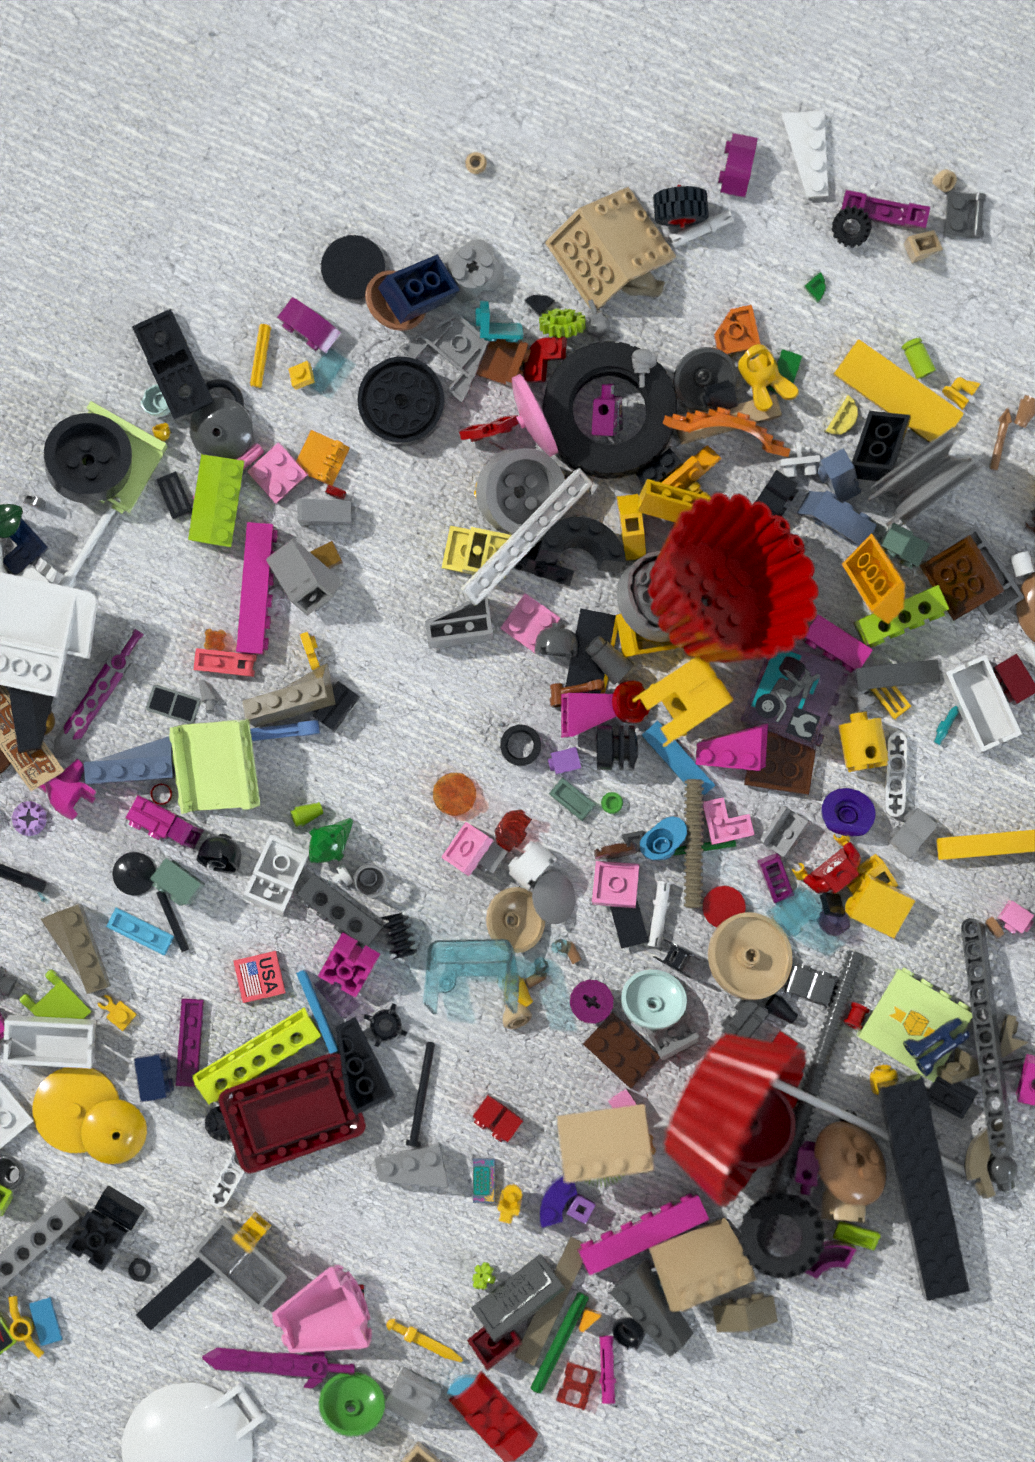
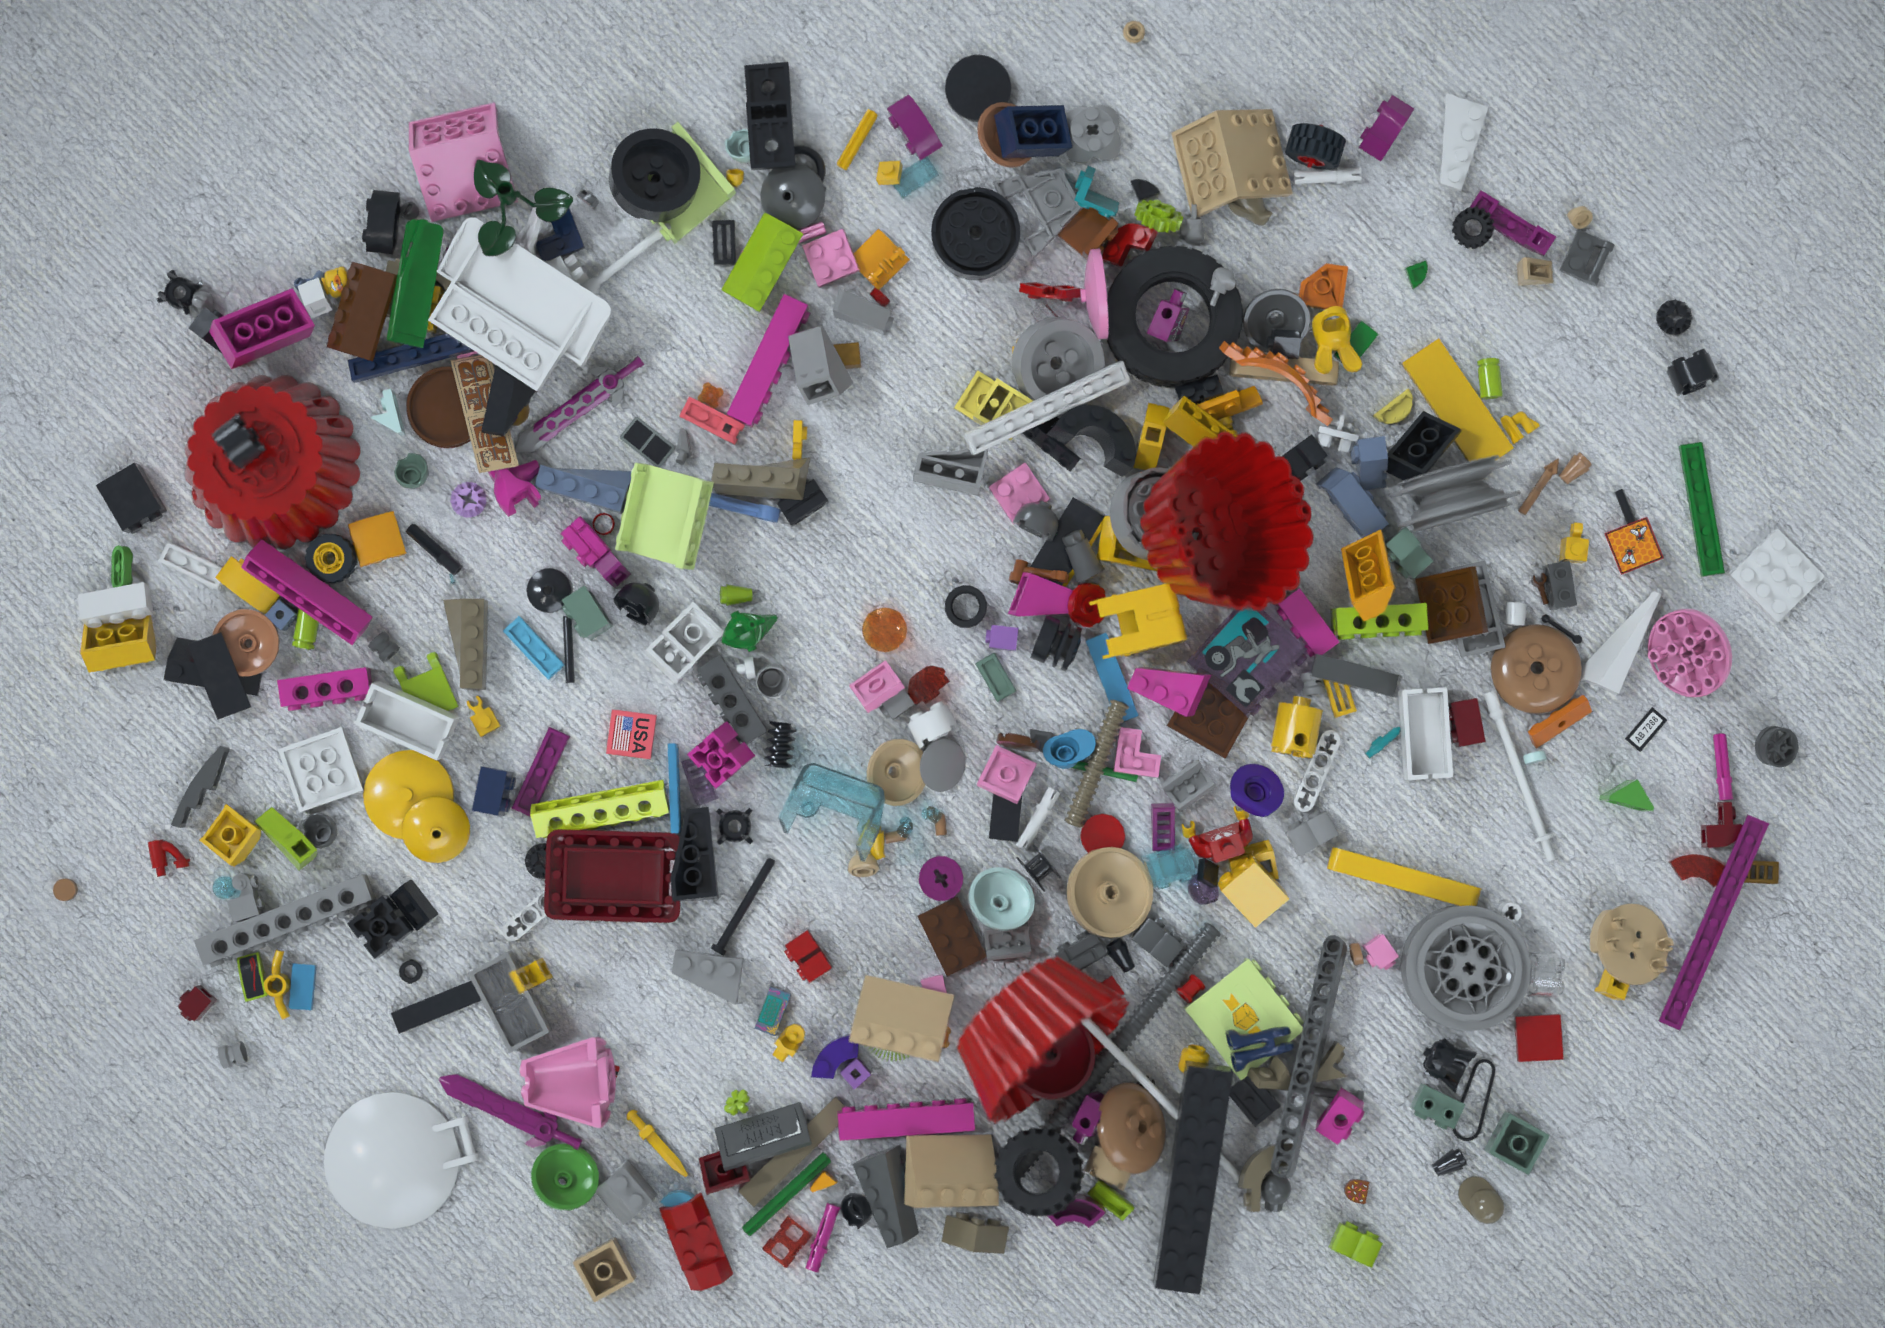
camera: 20 degrees right, 0 degrees up
(611, 802) = (1032, 695): bright green tile -> none

